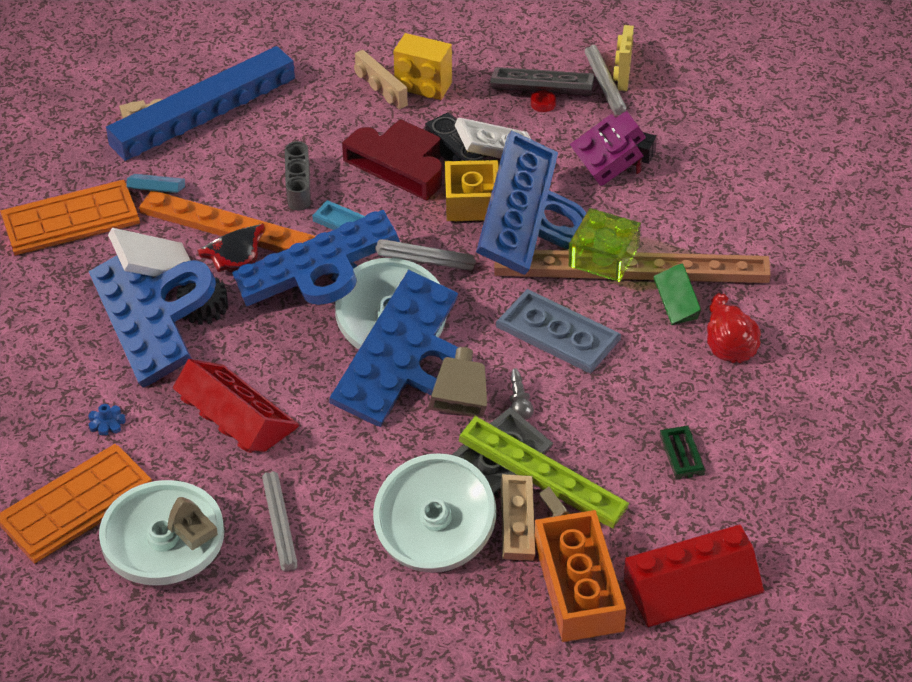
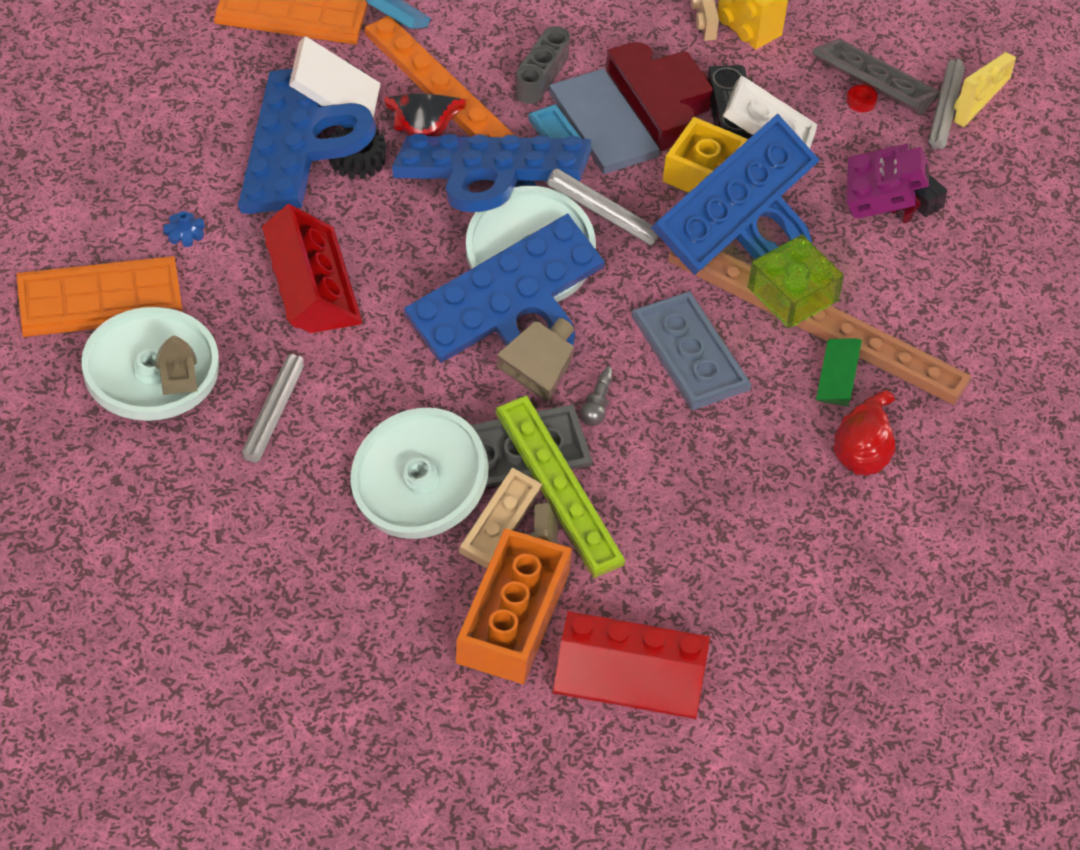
camera: 25 degrees right, 5 degrees up
(368, 192) = (604, 116): none -> sand blue tile
(687, 470) = (715, 558): dark green tile -> none

